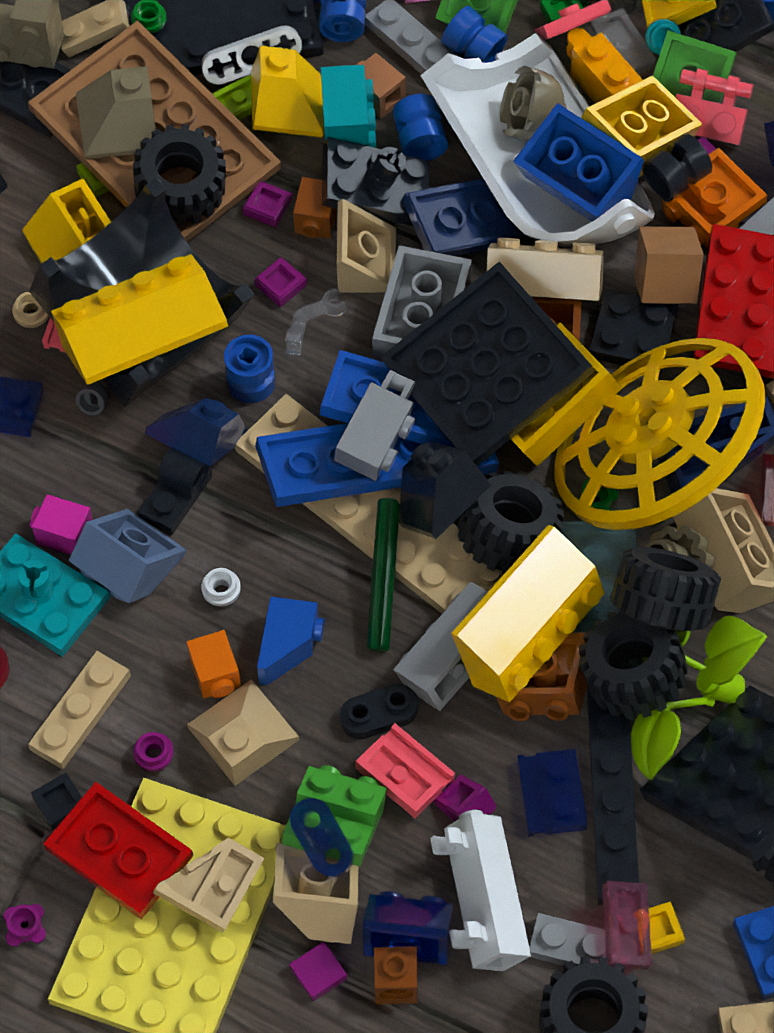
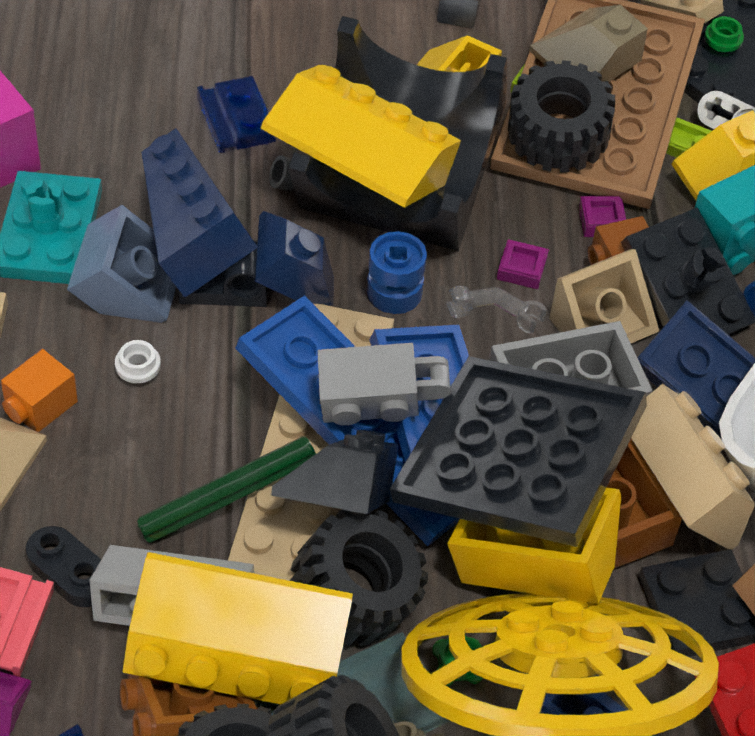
camera: 55 degrees right, 10 degrees down
(59, 523) = (130, 192): dark pink brick -> none
(123, 476) = (190, 218): none -> dark blue wedge
(288, 637) = (103, 439): blue slope -> none

